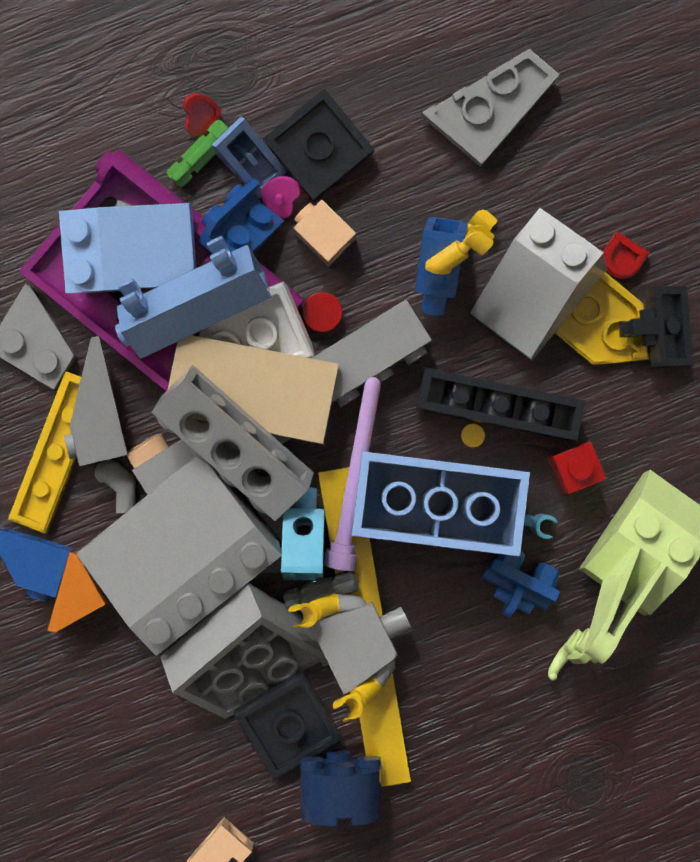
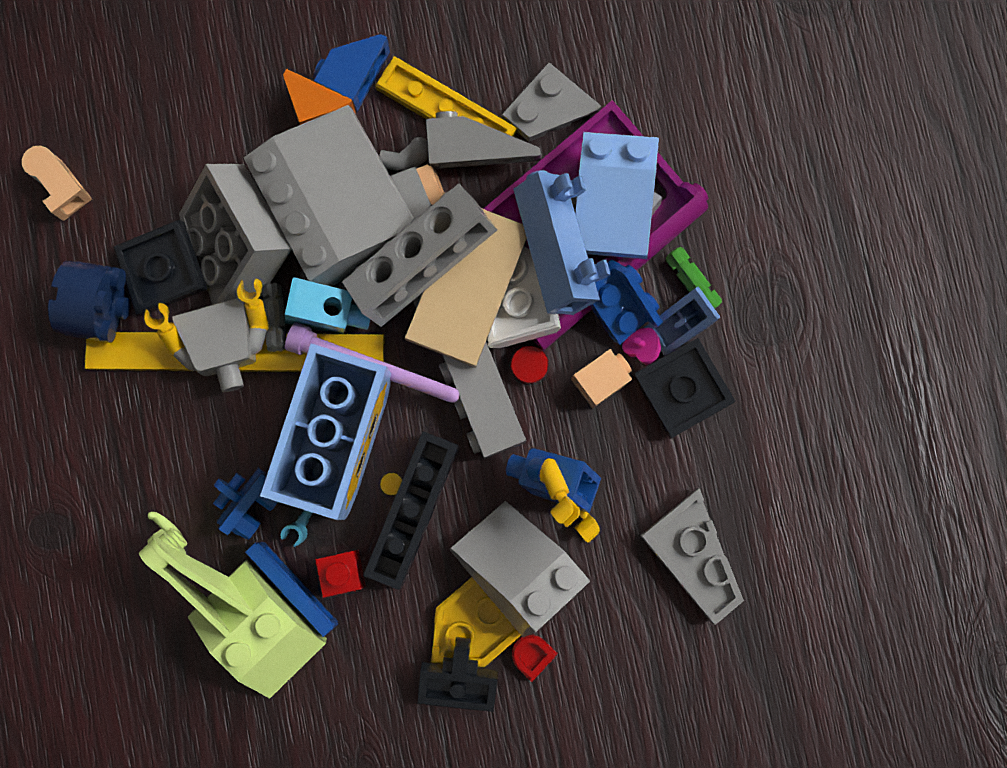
camera: 90 degrees right, 5 degrees down
(200, 113) = (730, 286): red piece -> none
(600, 514) = (292, 588): none -> blue tile

